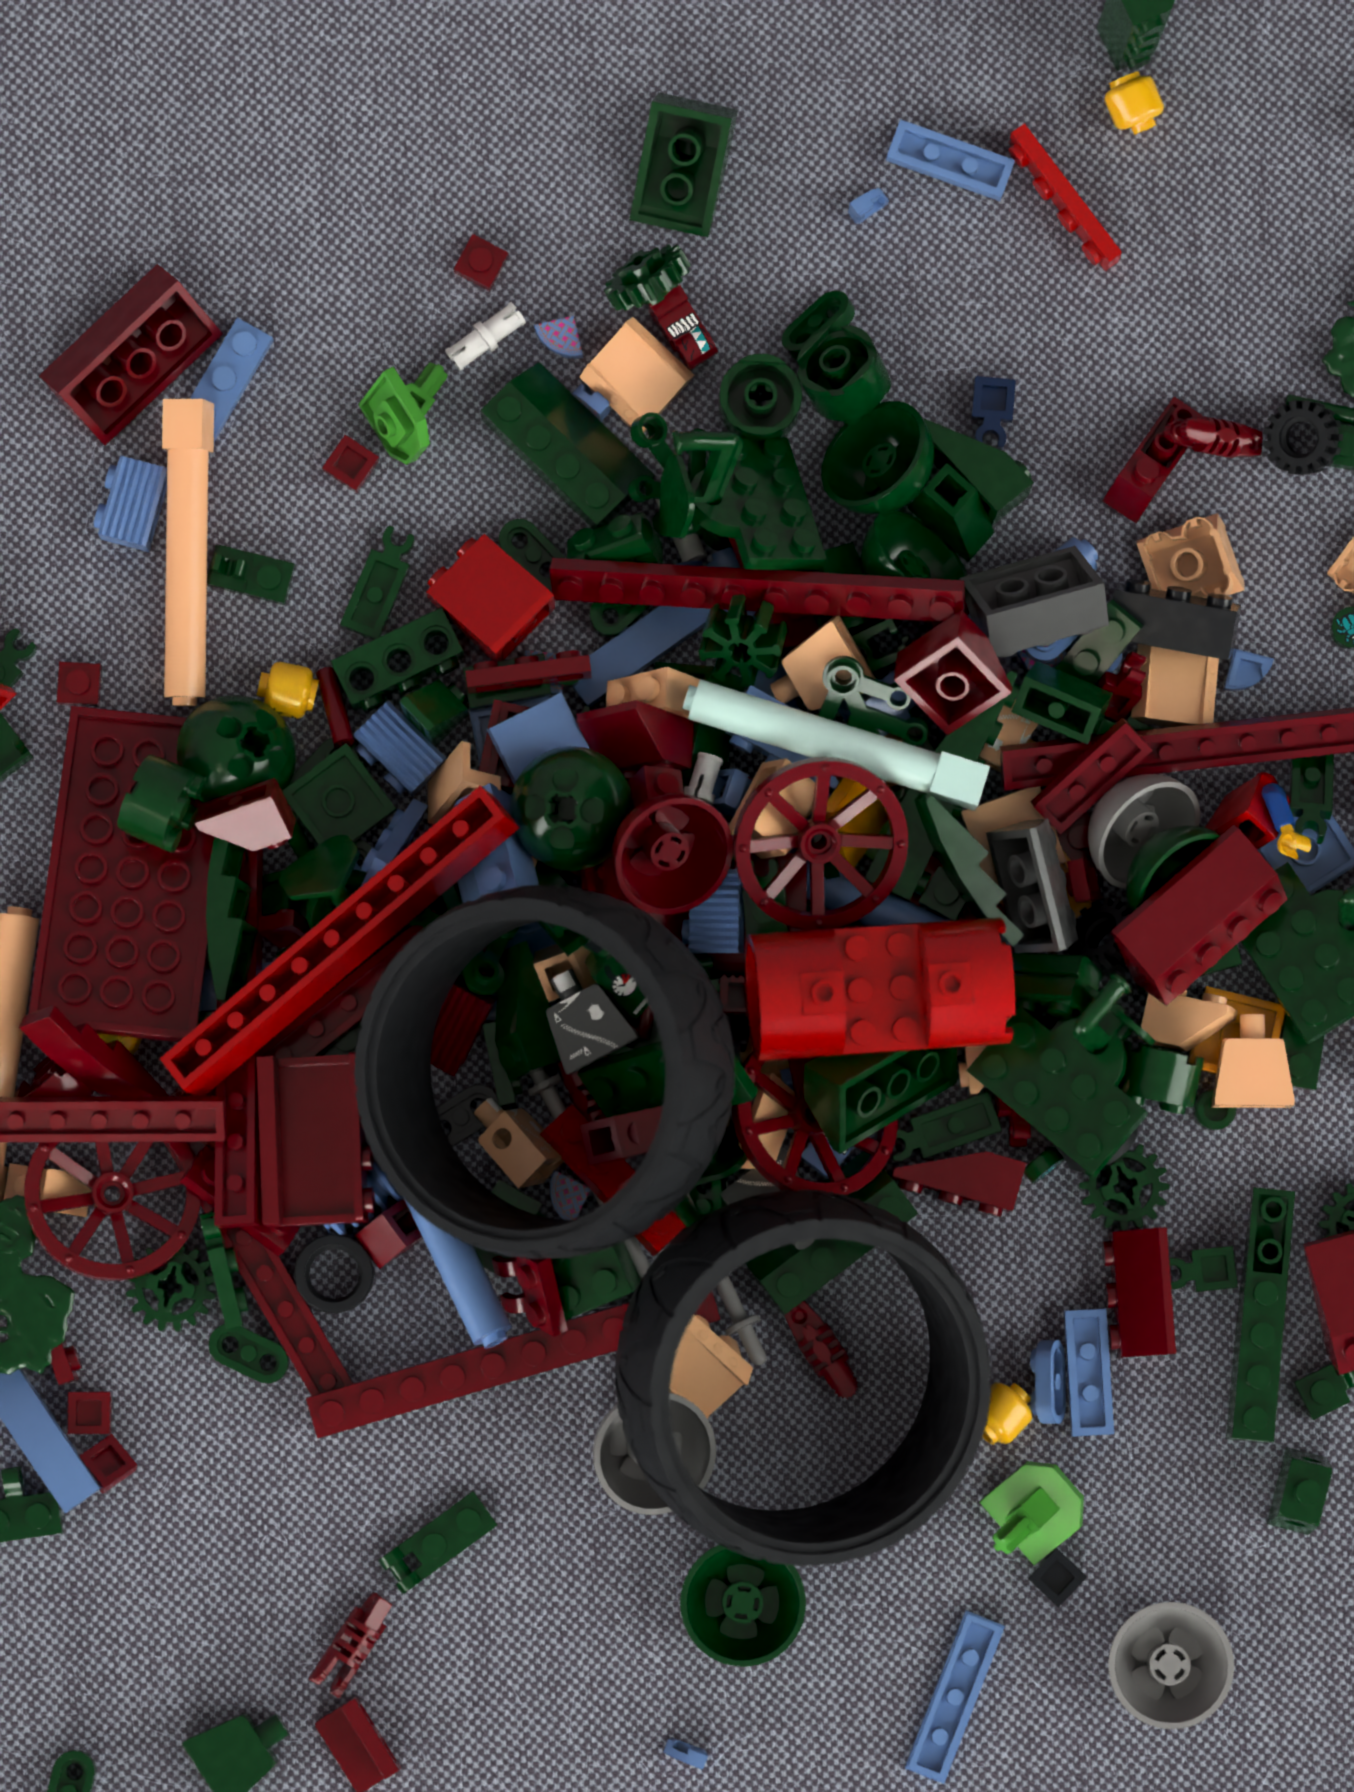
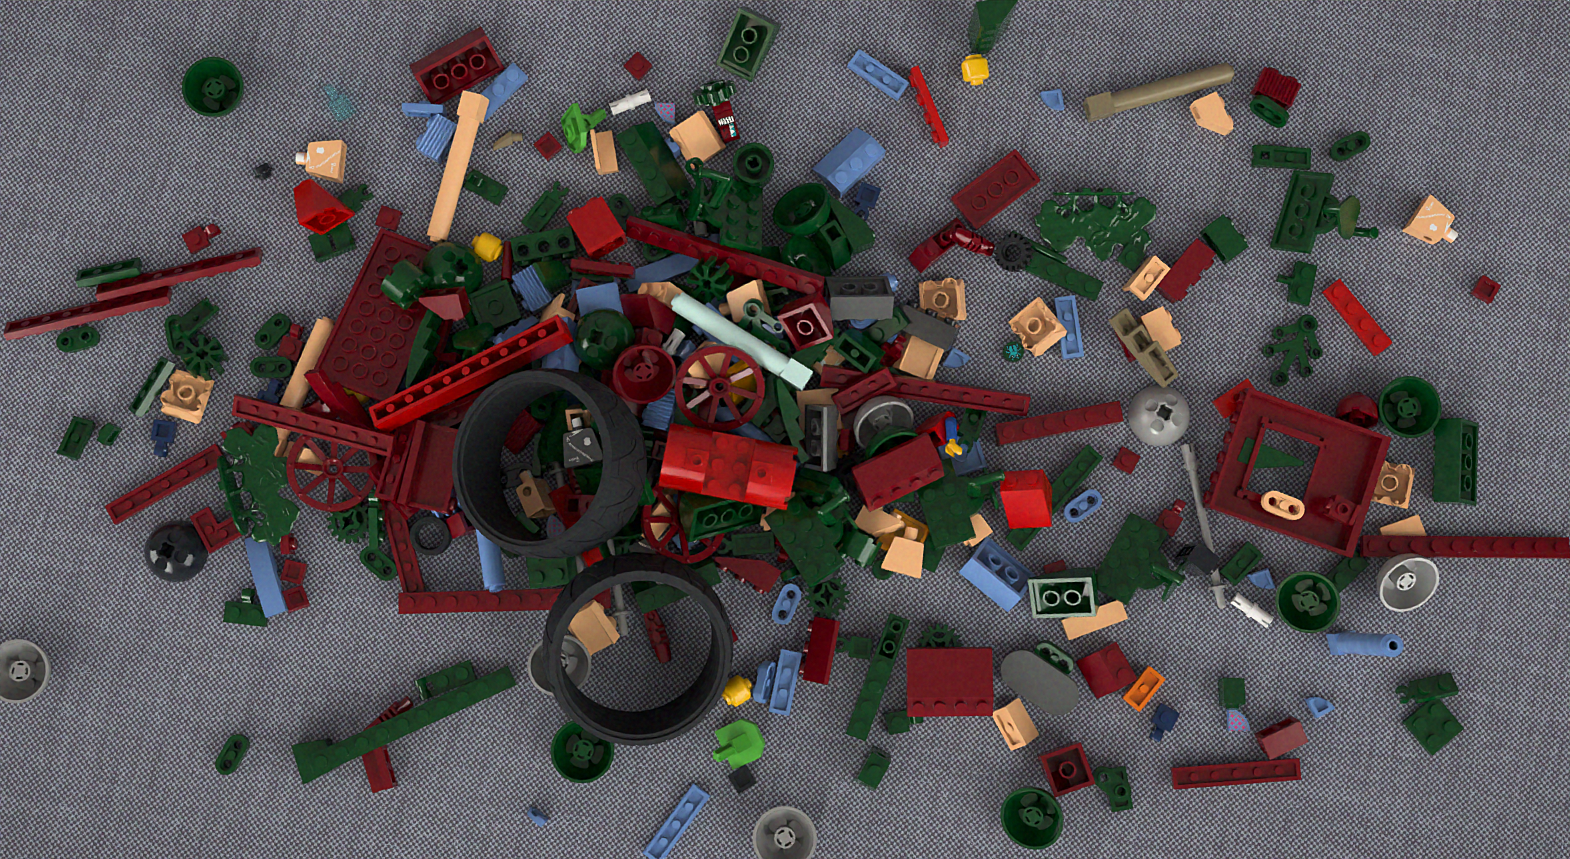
camera: 20 degrees right, 0 degrees up
(90, 454) = (423, 109): none -> medium blue plate
(268, 471) = (507, 140): none -> dark tan bar
(399, 1634) = (411, 721): none -> dark green plate
(463, 446) = (604, 152): none -> light nougat panel
(540, 1292) = (524, 574): dark red plate -> none
(827, 312) = (792, 138): dark green plate -> none
(843, 374) = (796, 163): dark green brick -> none
(867, 205) = (832, 86): medium blue tile -> none
(941, 341) = (849, 161): none -> medium blue slope
(1050, 1223) = (786, 604): none -> medium blue plate
(1235, 325) = (995, 190): none -> dark red plate
(1298, 120) = (1053, 99): none -> medium blue tile

